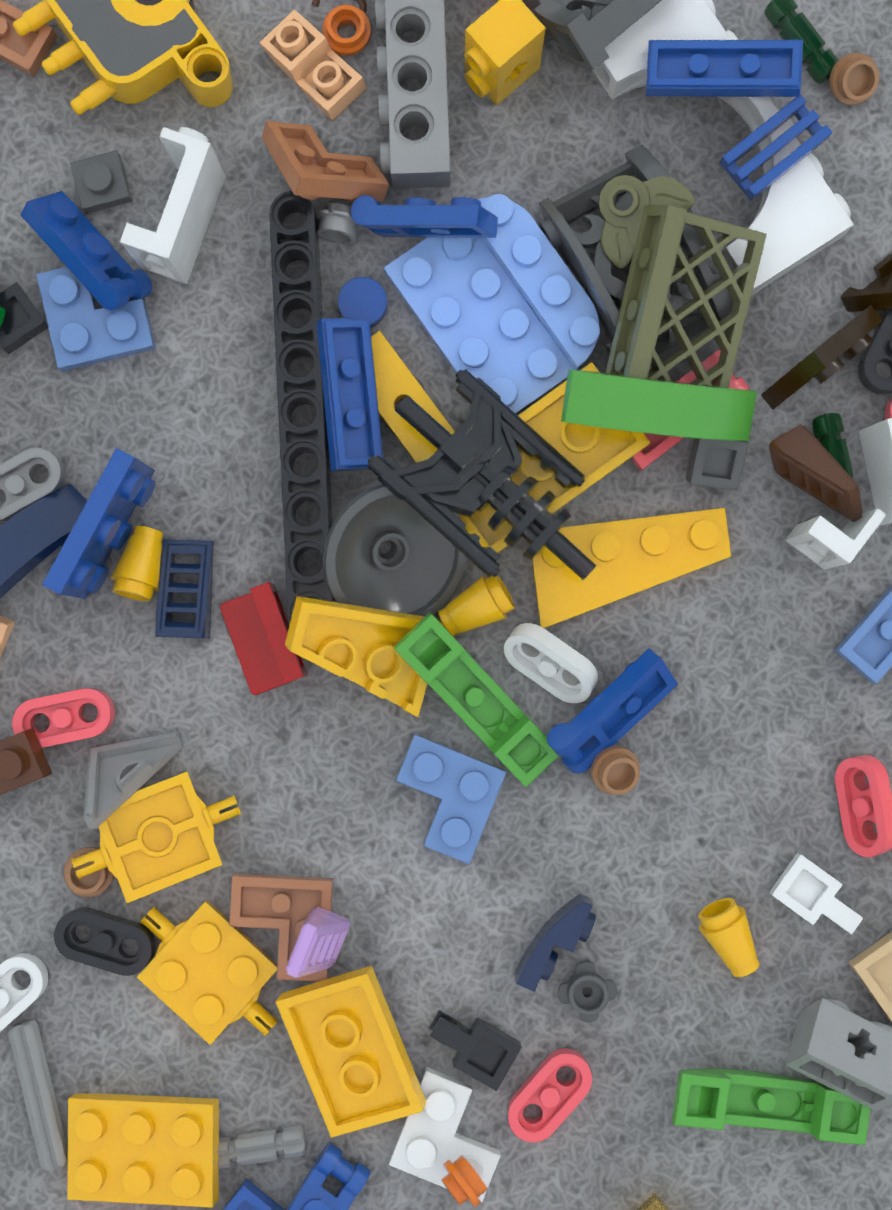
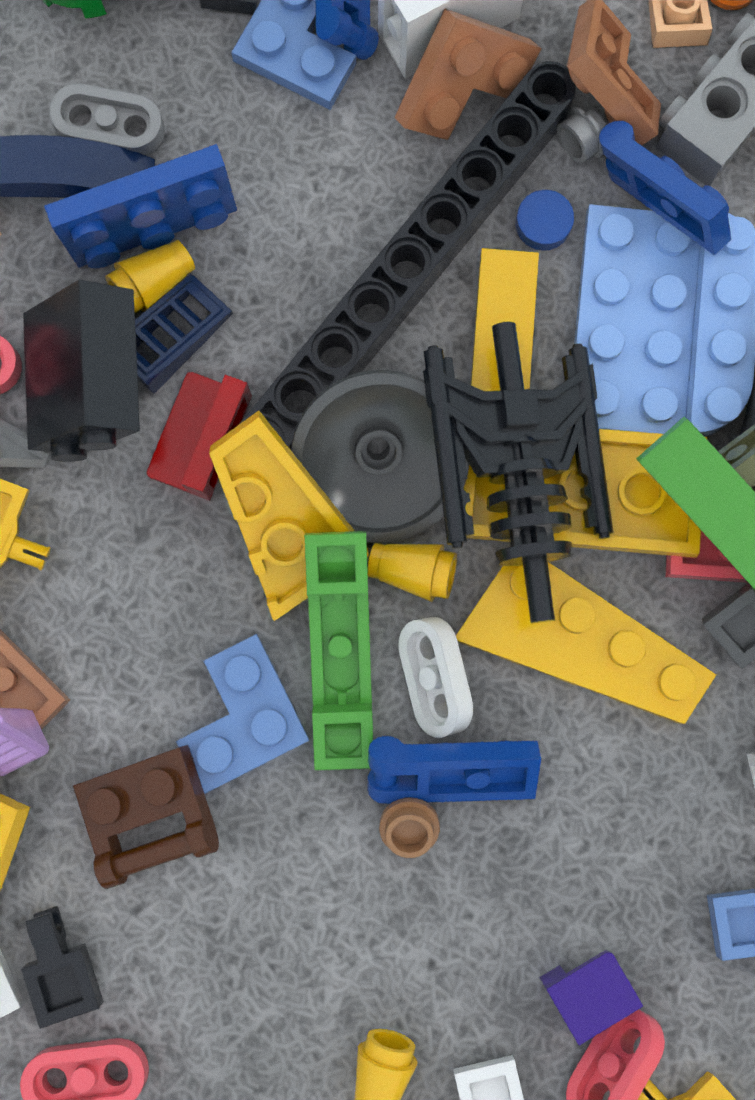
camera: 30 degrees right, 5 degrees down
(156, 668) = (81, 370): none -> black brick
(217, 248) = (462, 58): none -> nougat plate
(349, 392) = (465, 279): blue tile -> none
(431, 900) = (141, 796): none -> reddish brown plate
(564, 930) = (232, 933): dark blue slope -> none
(591, 1005) = (193, 1025): dark grey plate -> none
(814, 775) = (591, 995): none -> dark purple panel

